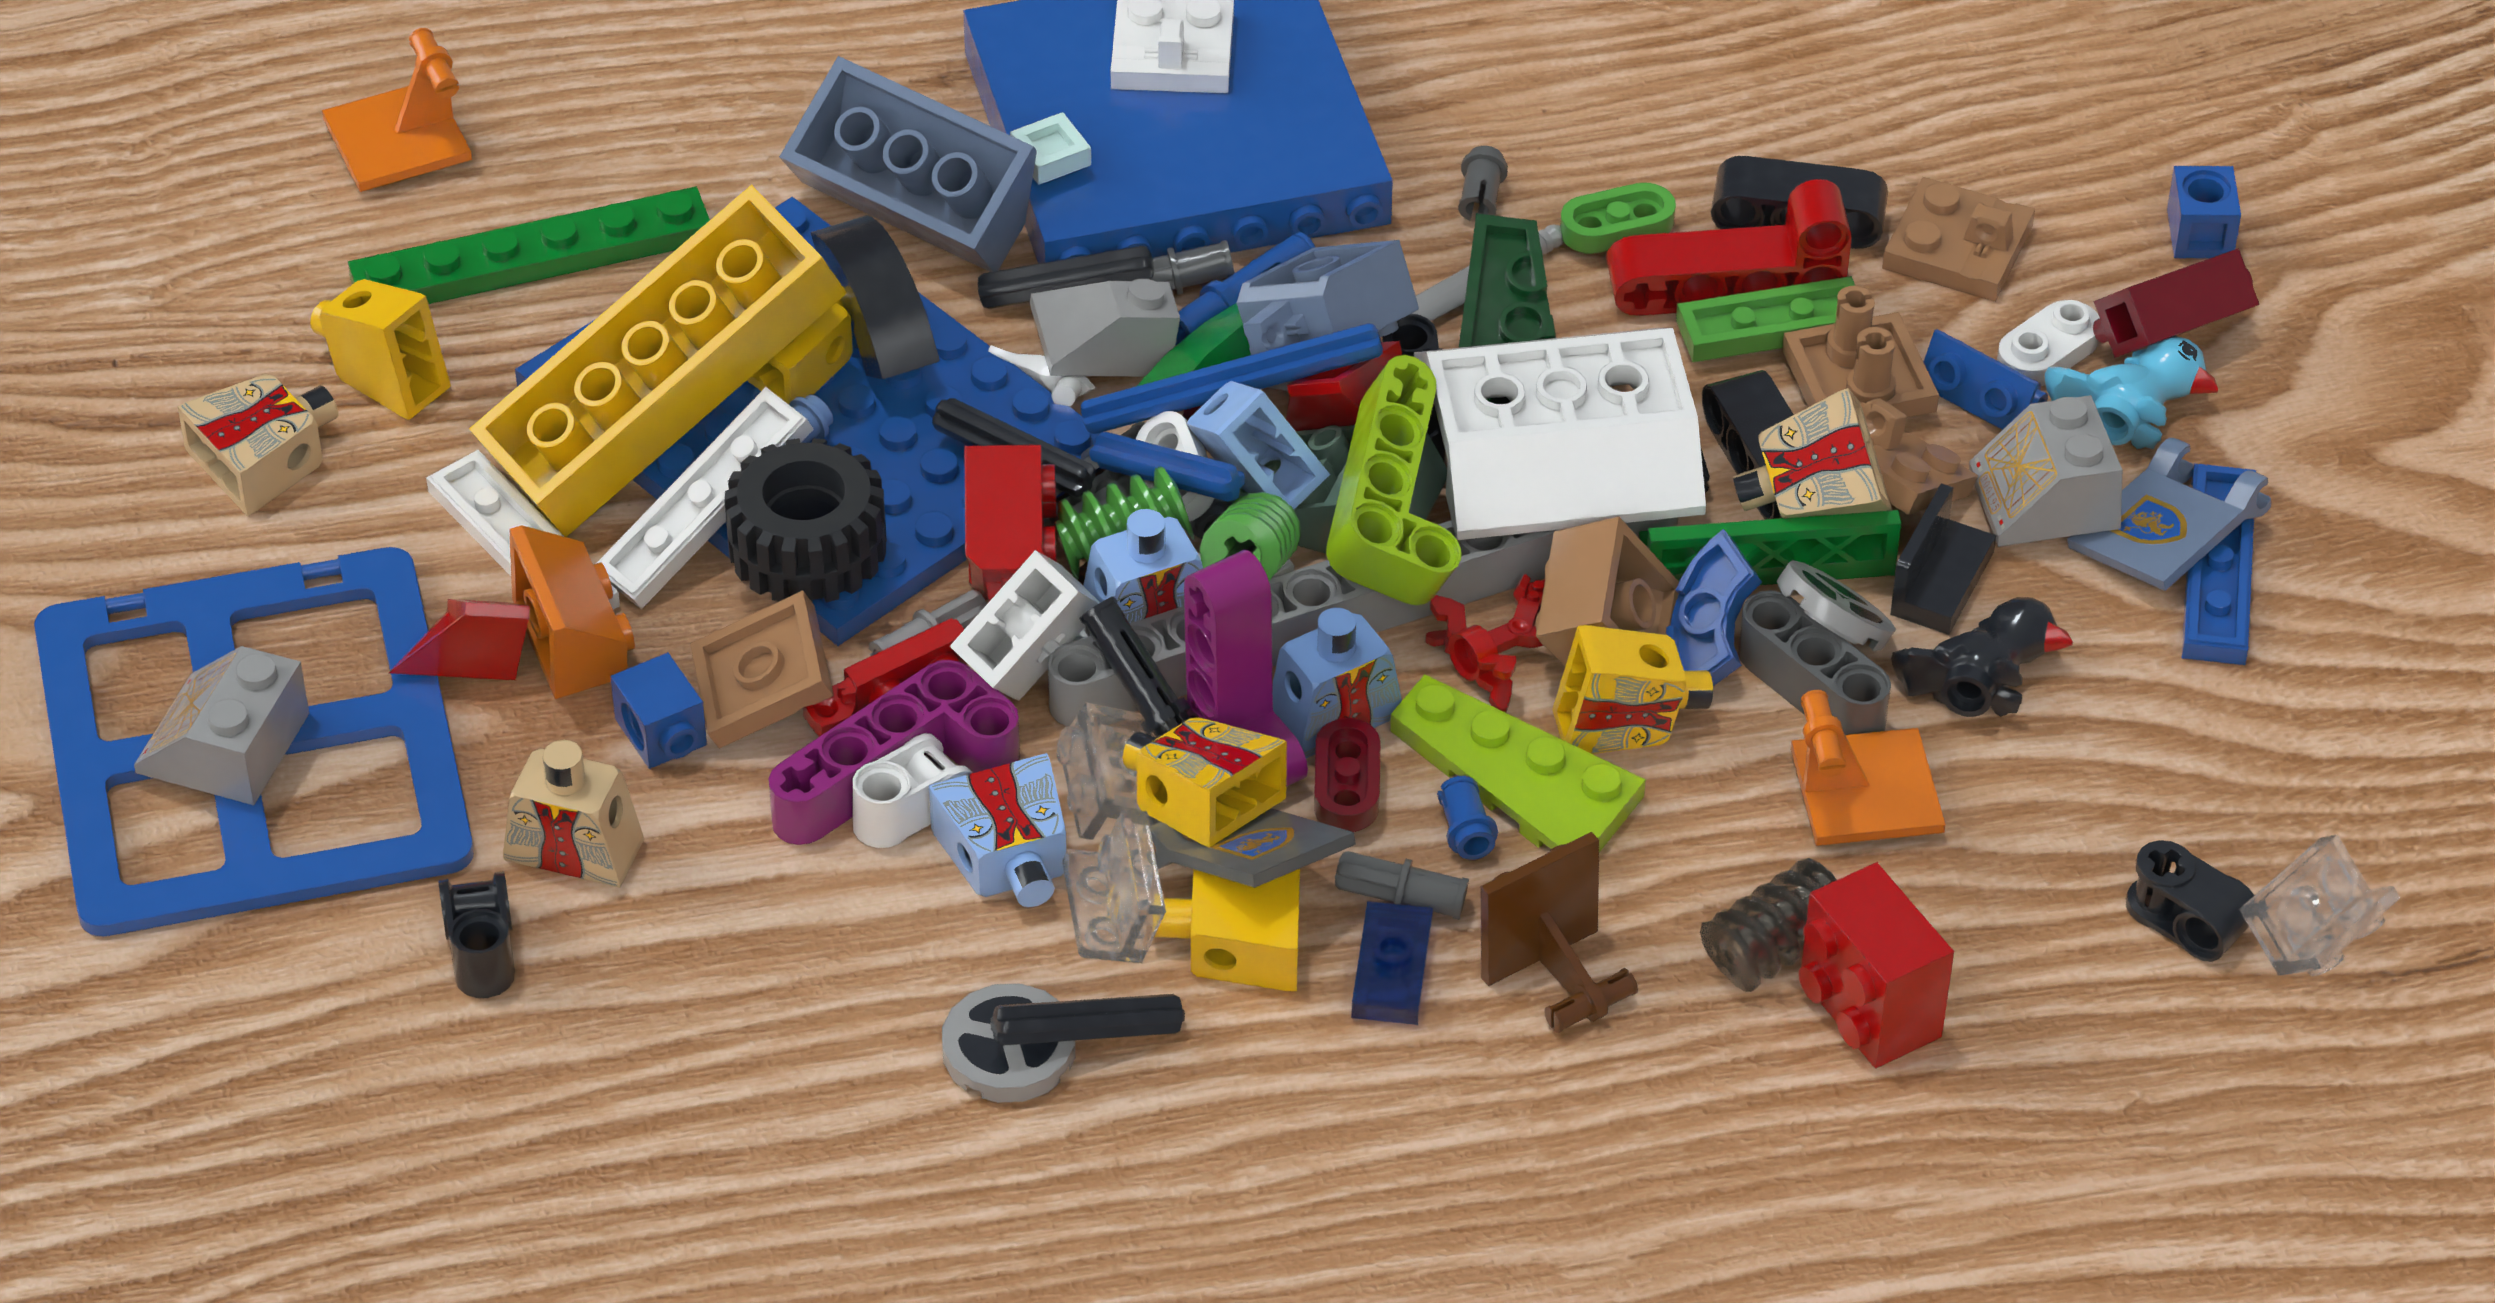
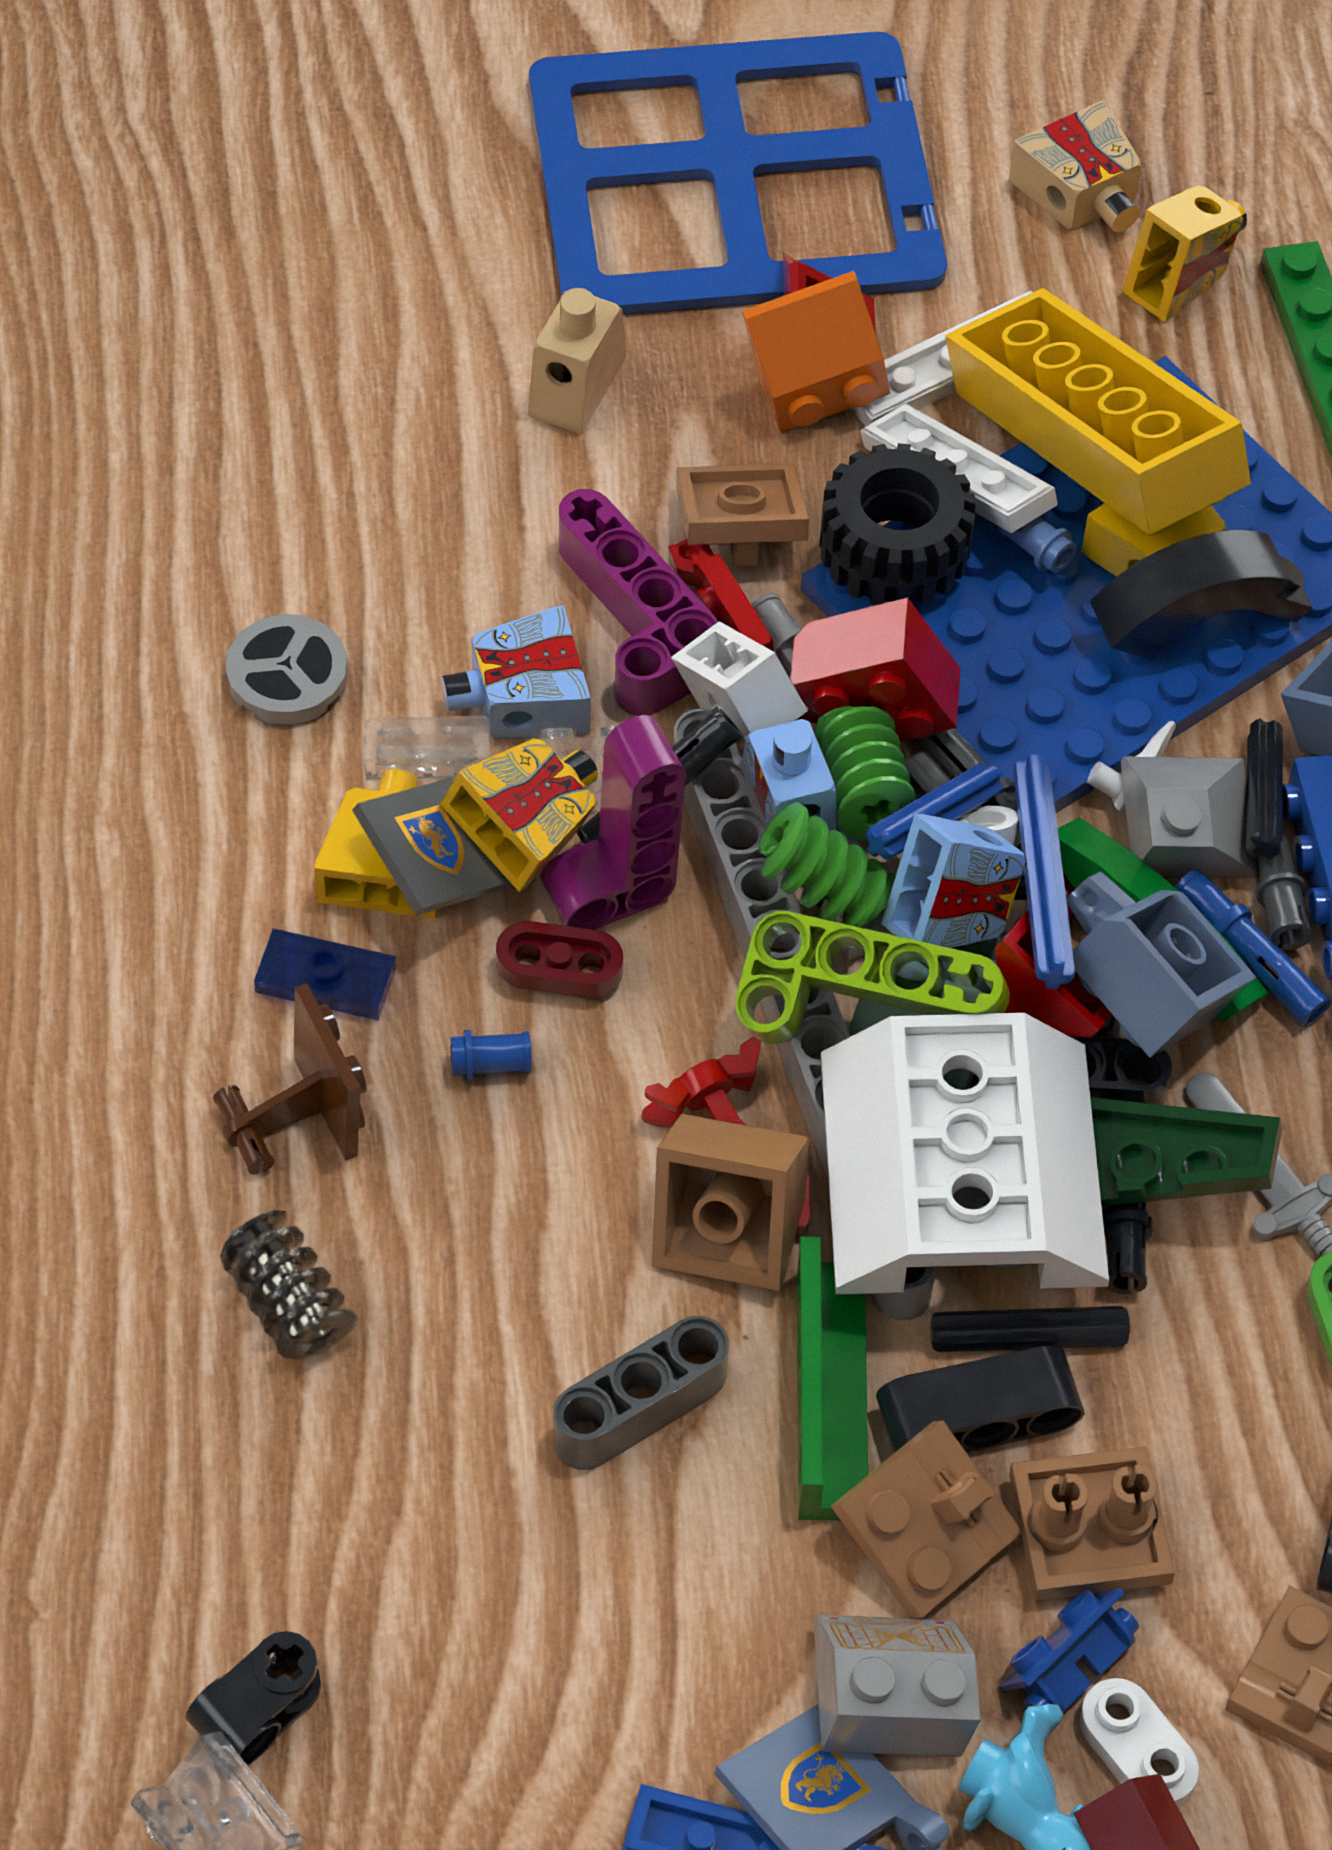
camera: 95 degrees right, 10 degrees up
(229, 725) = (716, 141): light grey slope -> none
(479, 935) = (467, 301): black piece -> none
(658, 710) = (709, 431): blue brick -> none
(894, 791) = (595, 611): white piece -> none
(980, 429) = (1002, 709): black axle -> none
(1087, 1019) = (280, 714): black axle -> none
(1334, 675) = (656, 935): medium blue torso -> none
(1401, 883) = (411, 989): dark grey axle -> none
(1524, 771) = (547, 1120): lime wing -> none
(1624, 690) = (615, 1198): yellow torso -> none
(1672, 268) = (1267, 1464): red beam -> none
(1708, 606) = (730, 1296): blue tile -> none
(1756, 319) = (1183, 1446): bright green plate -> none
(1817, 463) = (874, 1409): torso -> none
(1836, 606) = (711, 1416): light grey tile -> none
(1863, 781) = (480, 1417): orange plate -> none
(1875, 965) = (199, 1354): red brick -> none
(1939, 567) = (785, 1549): black panel -> none
(1980, 665) = (619, 1557): black animal -> none

